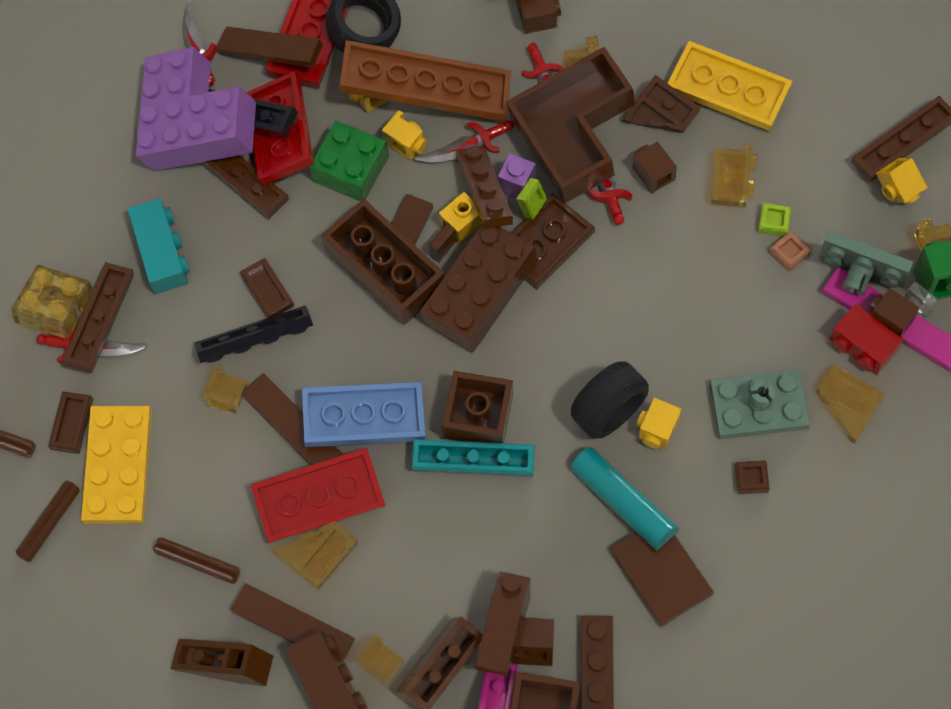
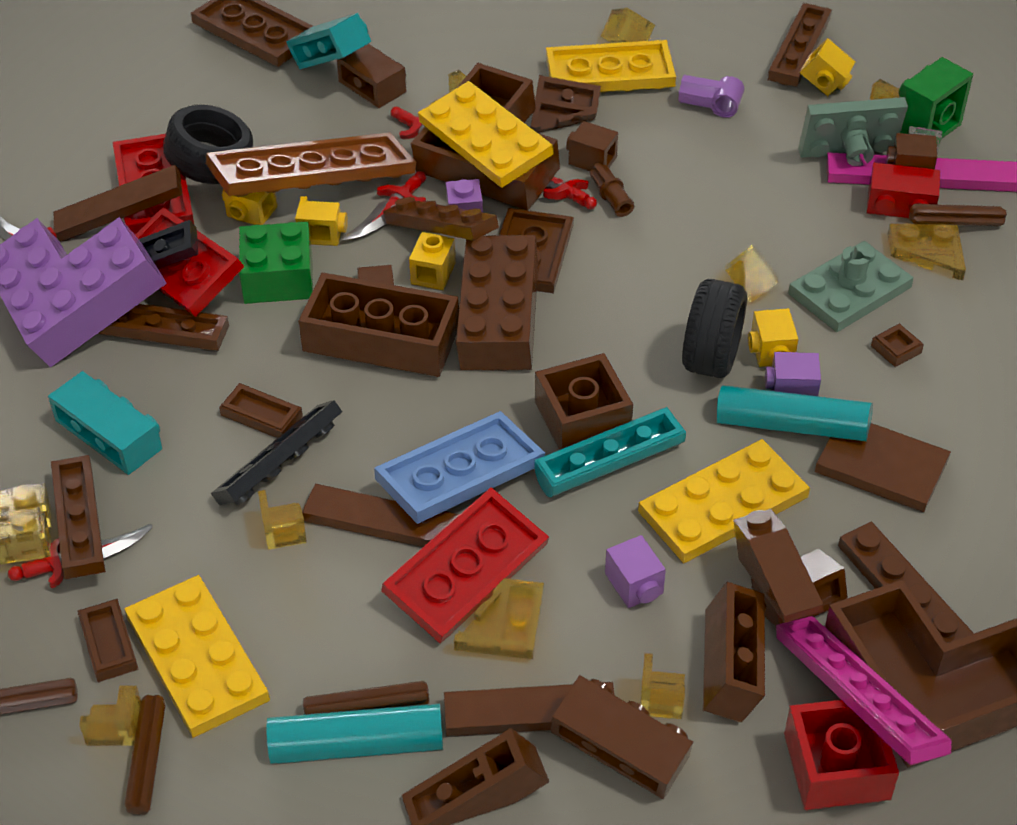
camera: 35 degrees left, 20 degrees down
(40, 486) = (113, 722): none -> clear yellow panel
(176, 579) = (354, 733): none -> teal brick
(423, 565) = (635, 571): none -> medium lavender brick
(442, 243) = (429, 278): reddish brown tile -> none
(527, 539) = (702, 507): none -> yellow plate
(531, 198) = (493, 205): lime tile -> none
(561, 125) = (485, 134): none -> yellow plate
(642, 215) = (612, 190): none -> reddish brown axle
(647, 467) = (794, 373): none -> medium lavender brick
(688, 355) = (752, 273): none -> clear yellow panel
(732, 176) = (674, 125): clear yellow bracket -> none
(770, 52) = (627, 26): none -> clear yellow panel
(774, 219) = (737, 146): lime tile -> none
(790, 251) = (771, 162): nougat tile -> none
(794, 162) = (720, 95): none -> medium lavender piece
(891, 385) = (957, 215): none -> reddish brown axle

